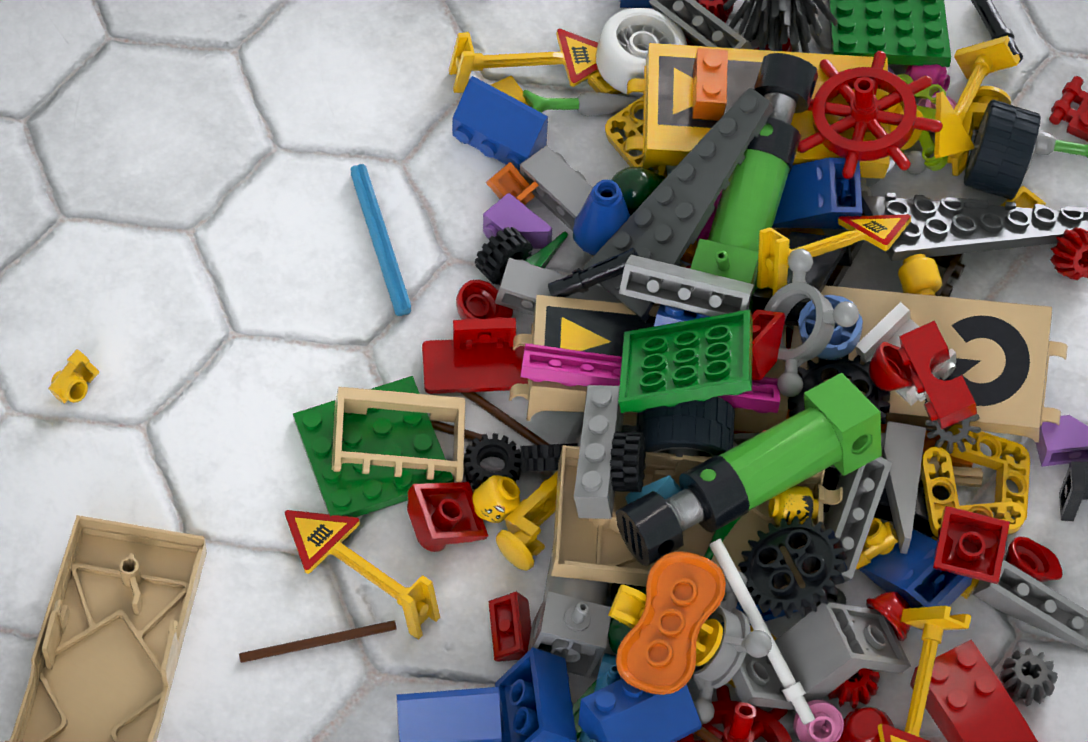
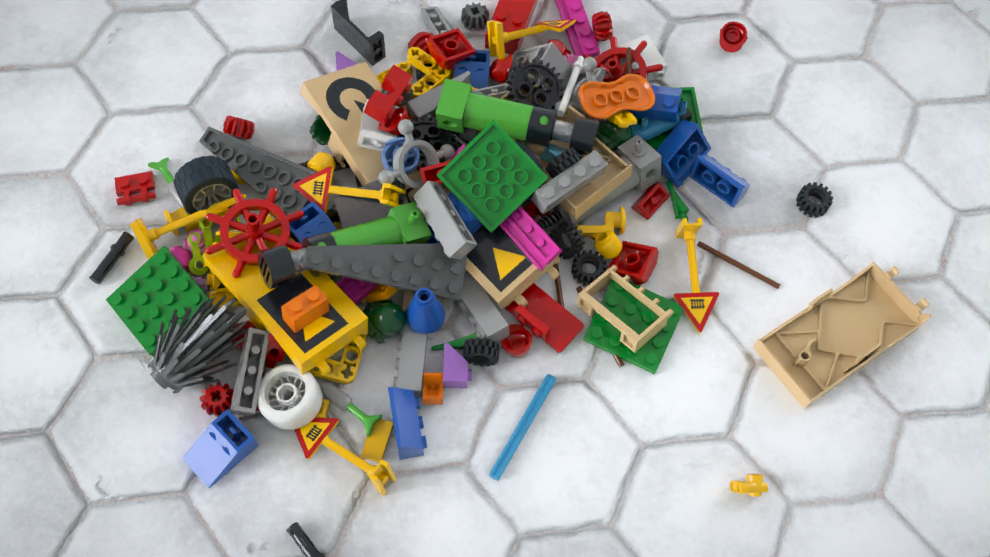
camera: 135 degrees left, 5 degrees up
(464, 648) = (679, 206): none -> green piece
(590, 276) = (483, 297): black pin -> none

